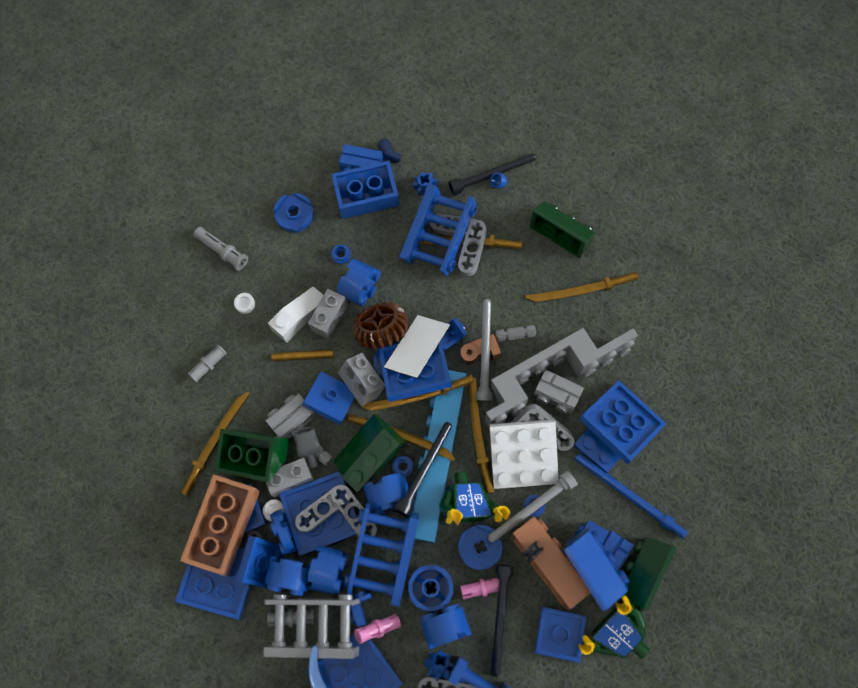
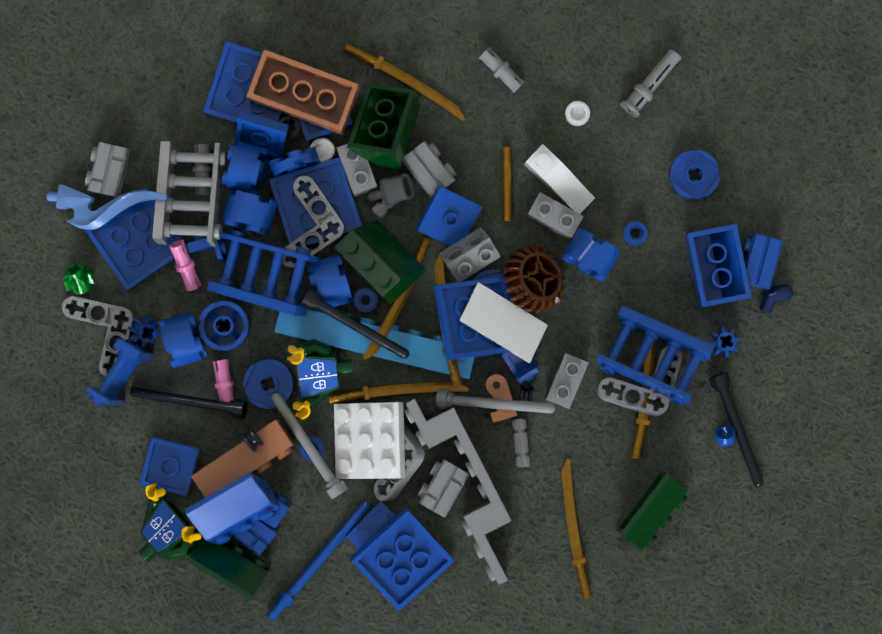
camera: 85 degrees right, 15 degrees up
(462, 298) = (566, 380): none -> light grey brick
(476, 330) = (526, 394): none -> black bush

